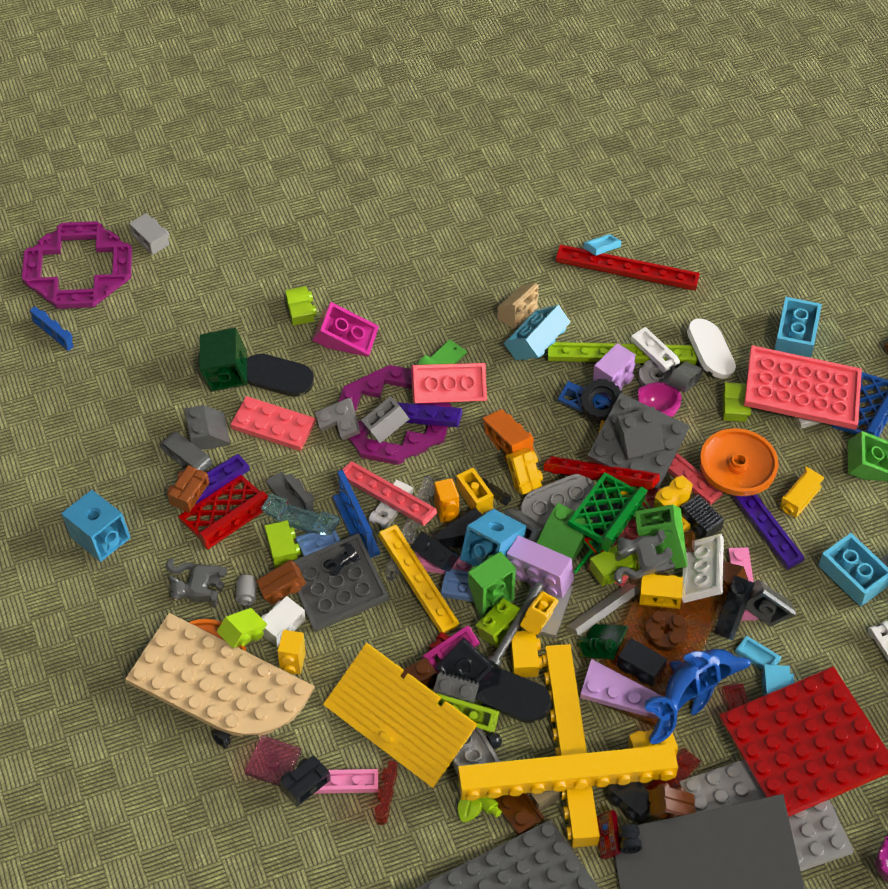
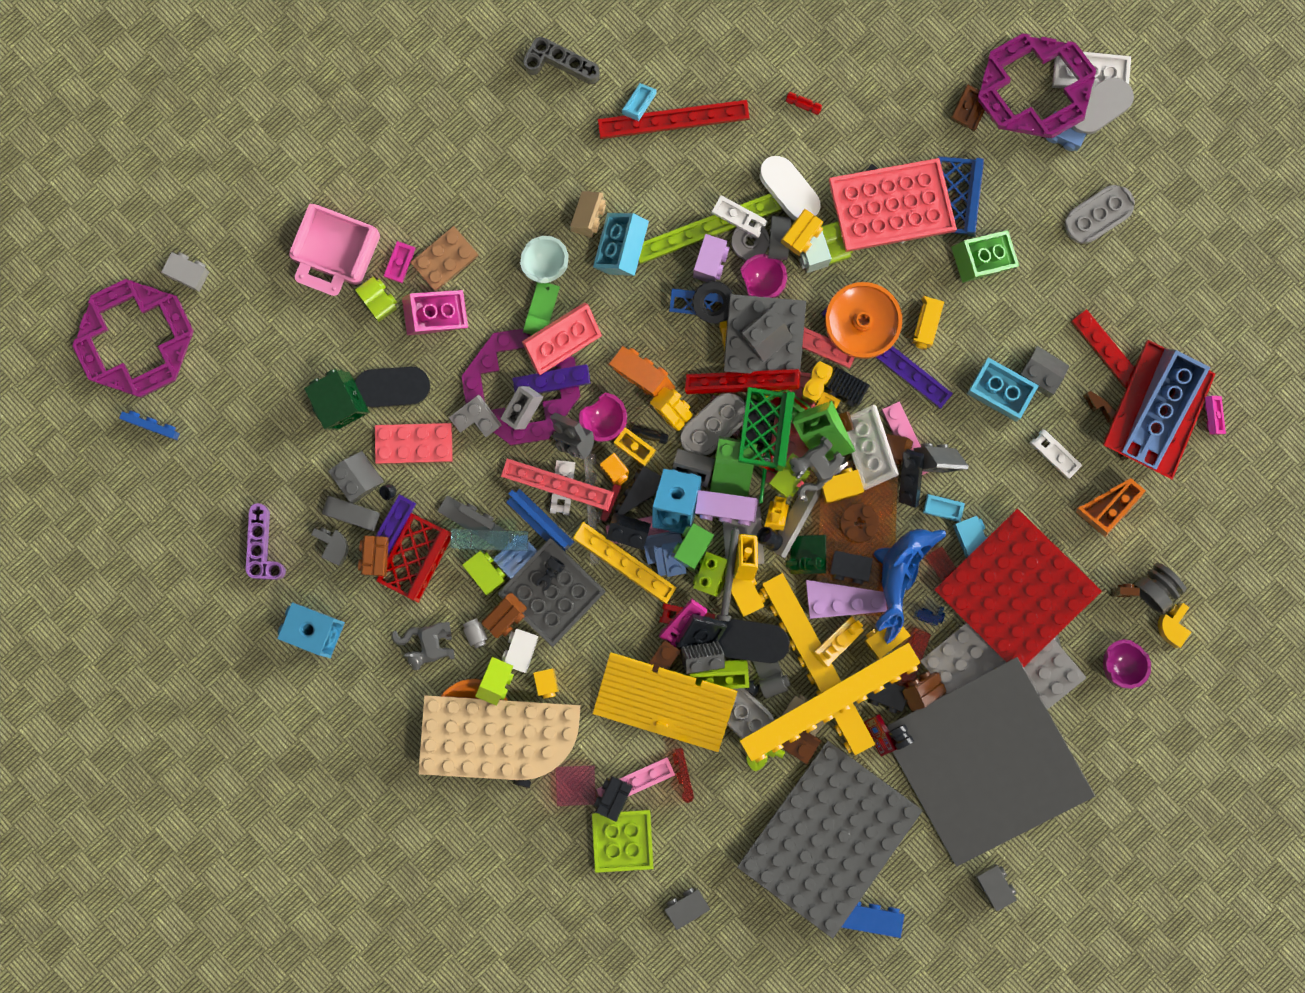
camera: 25 degrees left, 30 degrees up
(82, 459) = (262, 541): none -> medium lavender beam
(157, 474) = (337, 545): none -> dark grey brick
(229, 449) = (387, 491): none -> black hinge
(282, 256) = (334, 247): none -> bright pink piece
(294, 833) = (623, 843): none -> lime plate
(334, 287) = (399, 262): none -> dark pink plate
(375, 299) = (444, 259): none -> medium nougat plate
(420, 461) = (571, 436): none -> dark grey brick
(436, 524) = (606, 514): none -> dark red tile
(458, 458) = (604, 418): none -> dark pink cylinder
(460, 596) = (665, 560): none -> medium blue plate
(463, 323) = (544, 259): none -> light aqua cylinder
(517, 738) = (771, 679): none -> dark grey door
(539, 187) = (563, 63): none -> dark grey beam
(570, 612) = (769, 538): none -> black wheel
(586, 595) = (777, 513): none -> yellow hips
(601, 727) = (838, 641): none -> yellow plate
(704, 744) = (927, 617): none -> clear blue bracket
(707, 366) = (802, 232): none -> yellow brick
(712, 394) = (817, 255): none -> light aqua brick
(751, 294) = (803, 103): none -> red axle
(798, 327) = (864, 132): medium azure brick -> none

